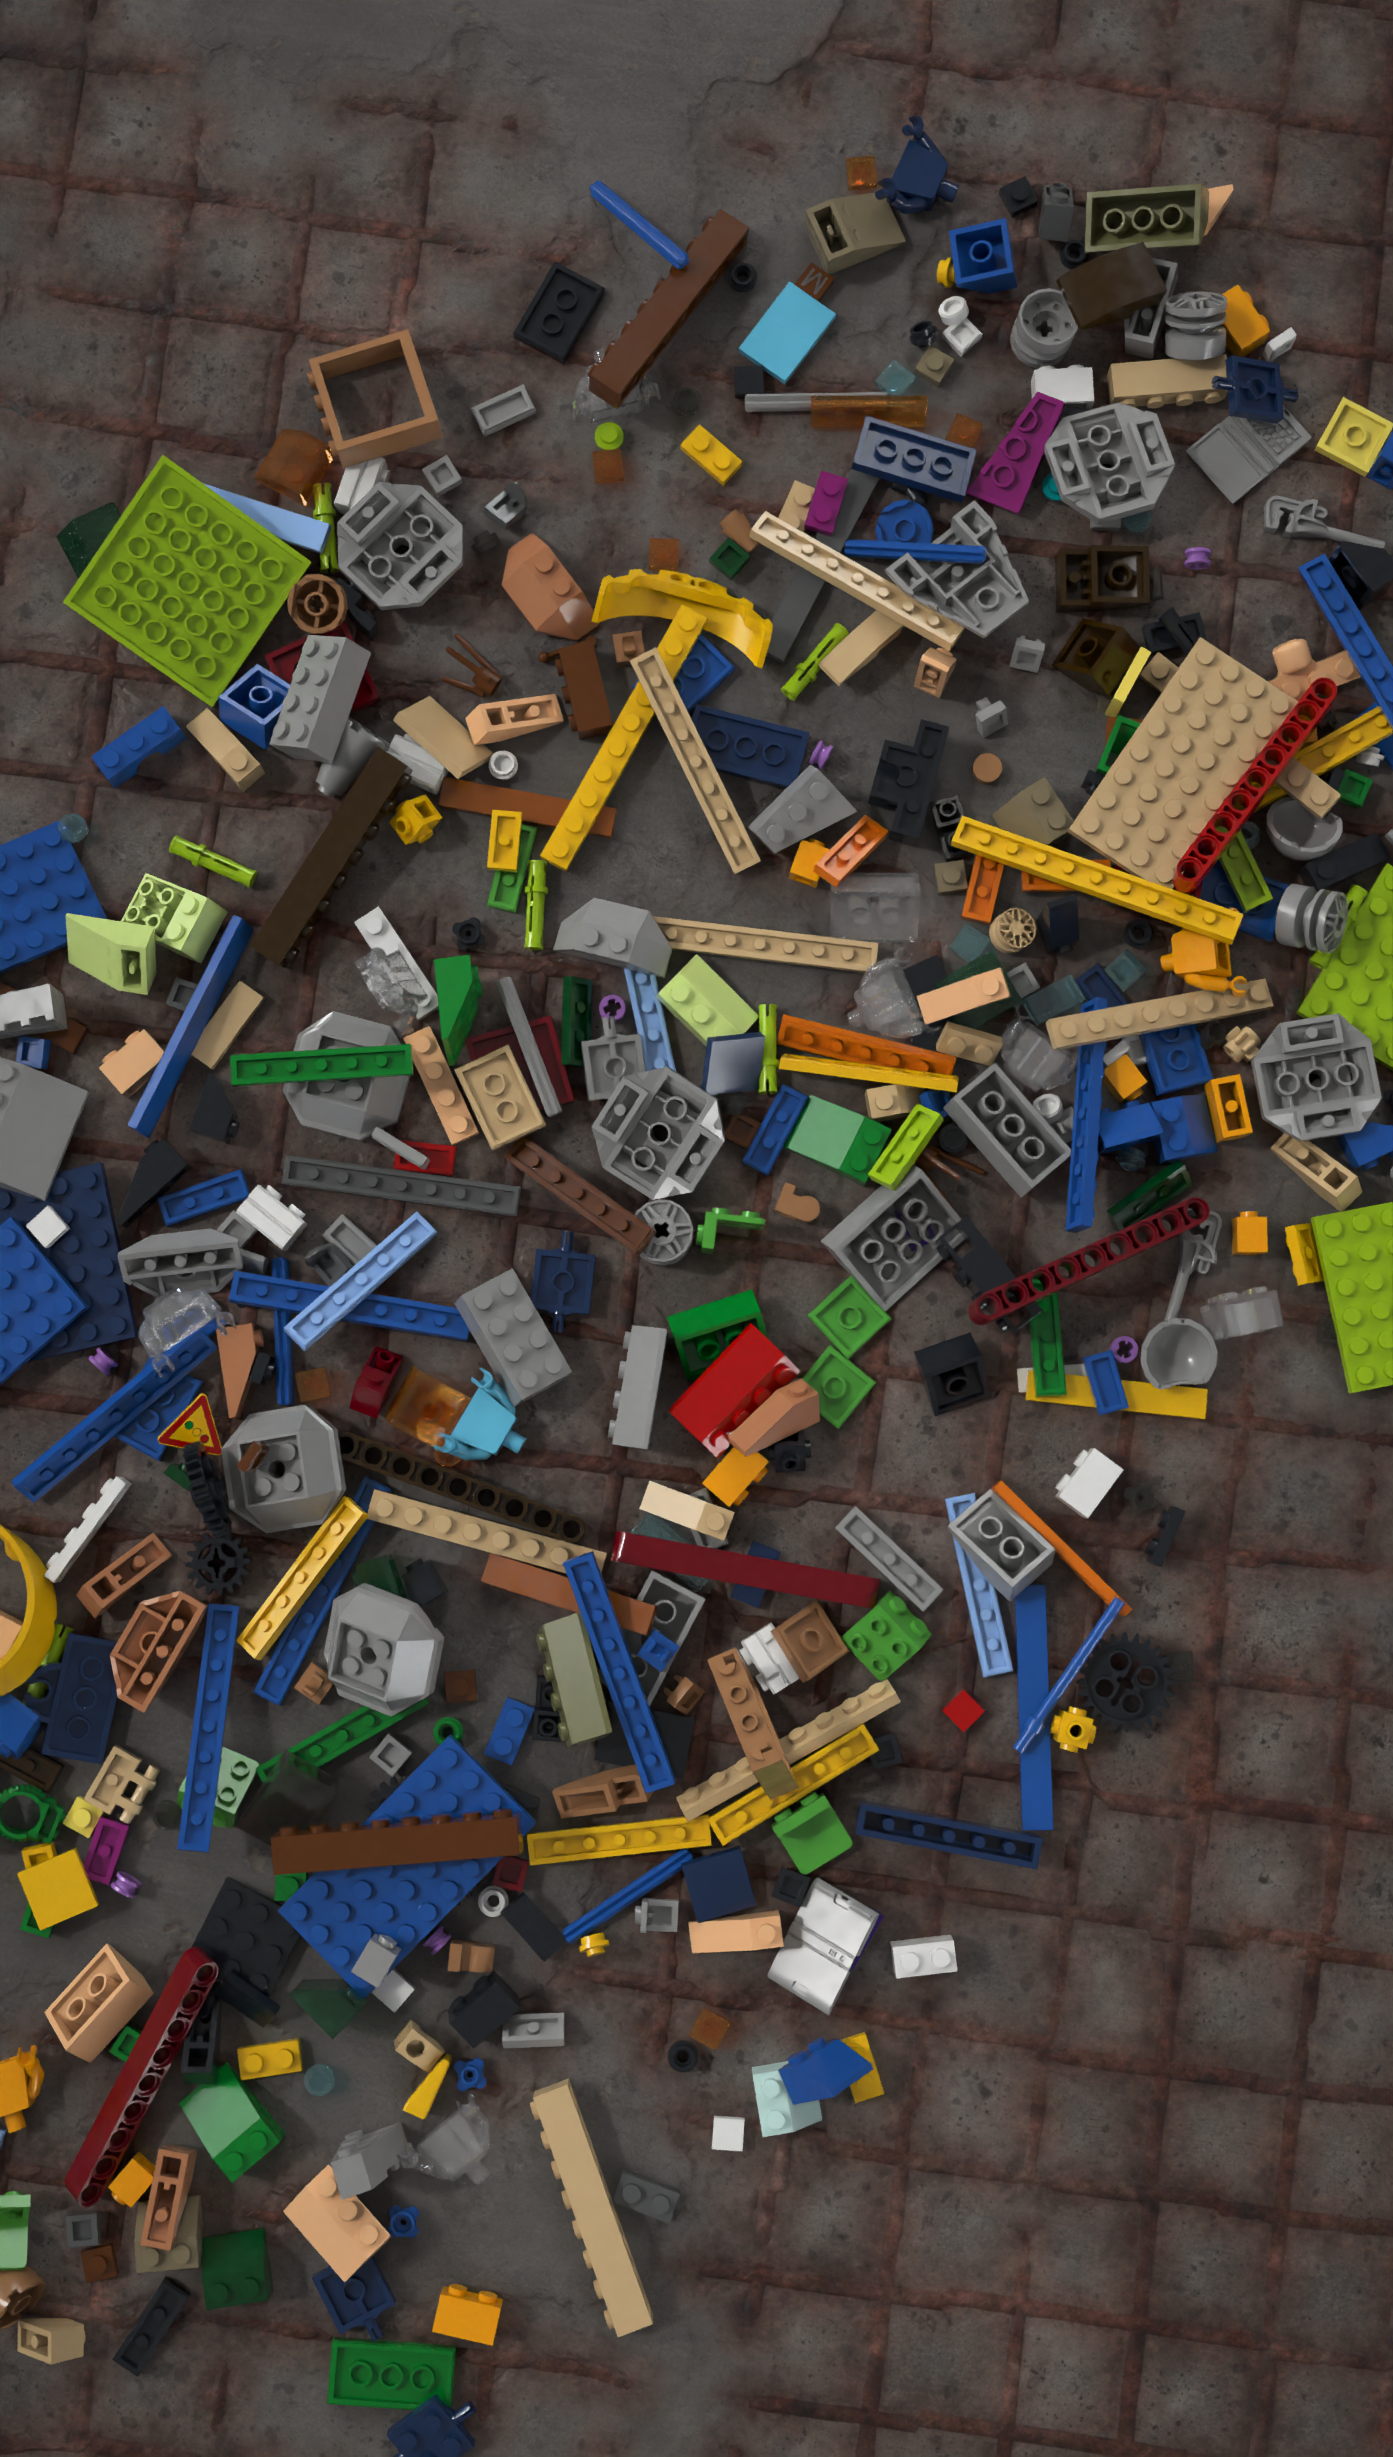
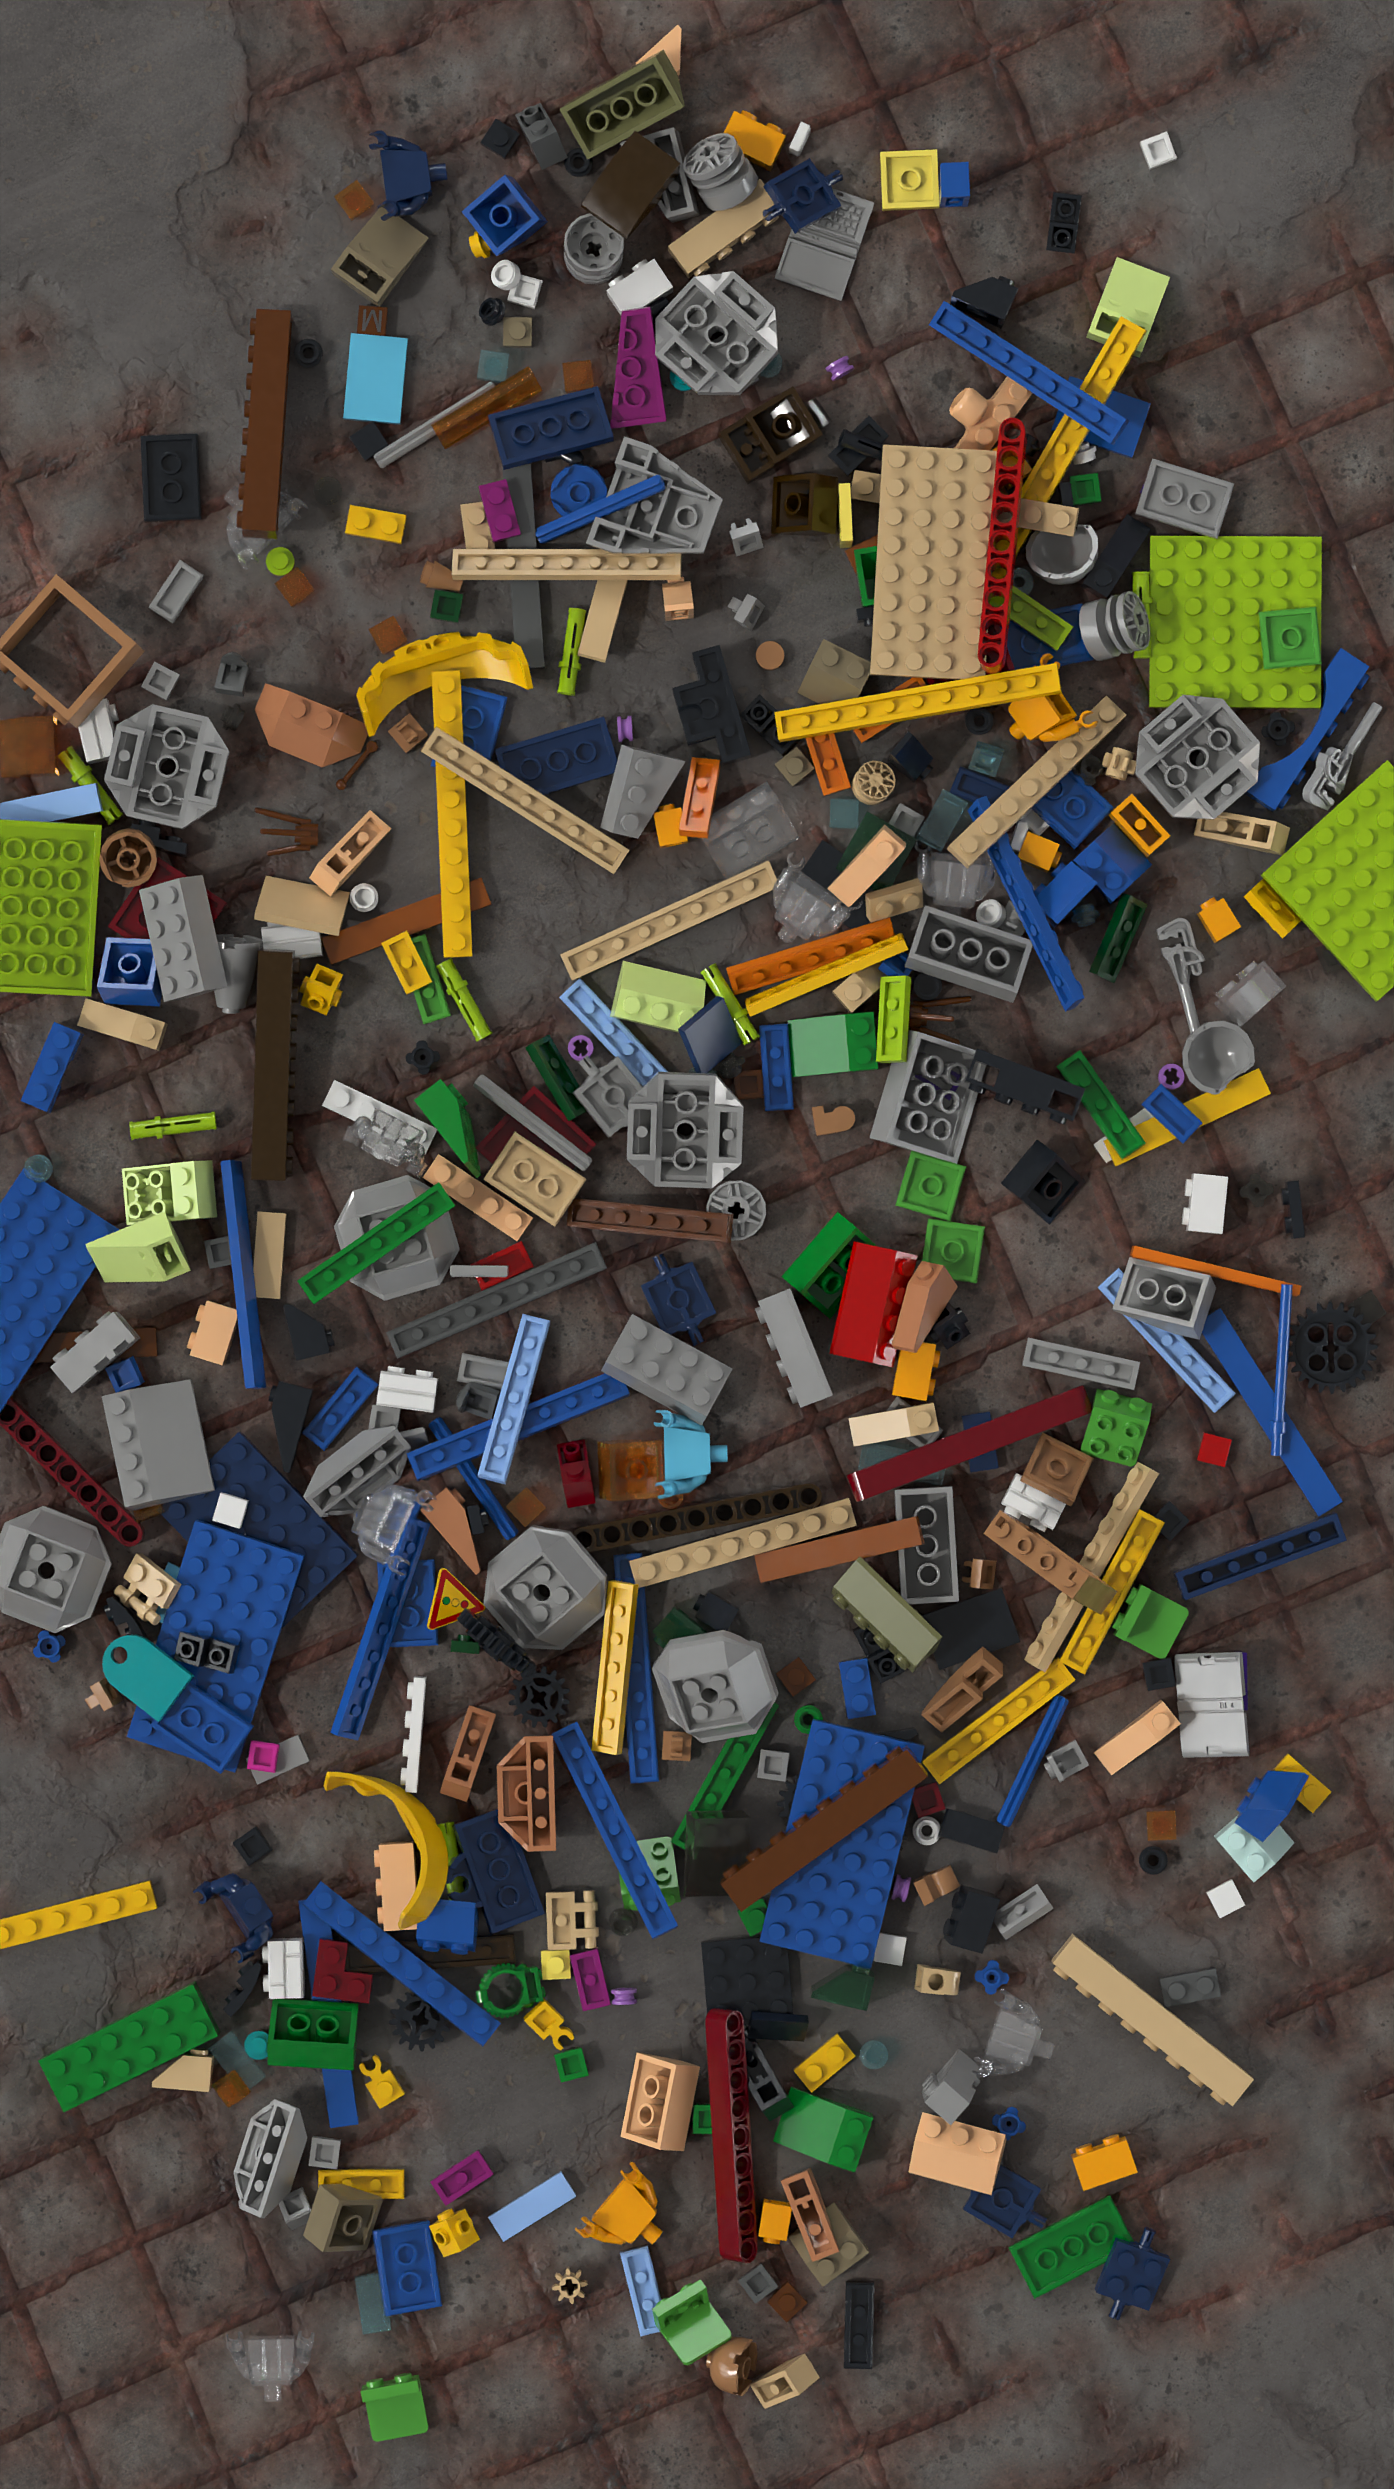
camera: 30 degrees left, 5 degrees up
(58, 1889) = (572, 2031): yellow tile -> none
(103, 1361) = (342, 1591): medium lavender bush -> none
(236, 2268) = (898, 2238): dark green slope -> none
(253, 1457) = (519, 1593): reddish brown tile -> none
(376, 1959) = (863, 1928): light grey brick -> none
(424, 2096) = (965, 2014): yellow slope -> none
(584, 690) = (393, 793): reddish brown brick -> none
(593, 1944) = (1028, 1815): yellow plate -> none
(615, 937) = (547, 987): light grey wedge -> none
(619, 1672) = (918, 1586): blue plate -> none
(639, 224) = (195, 364): blue axle -> none
(658, 1650) = (939, 1550): blue tile -> none
(718, 1884) = (1099, 1707): dark blue tile -> none
(722, 1217) = (773, 1188): bright green bracket -> none
(923, 1956) = (1298, 1664): white brick -> none
(1064, 1721) = (1300, 1407): yellow brick -> none
(1078, 1268) = (1109, 1015): dark red beam -> none
(1306, 522) = (913, 280): light grey piece -> none

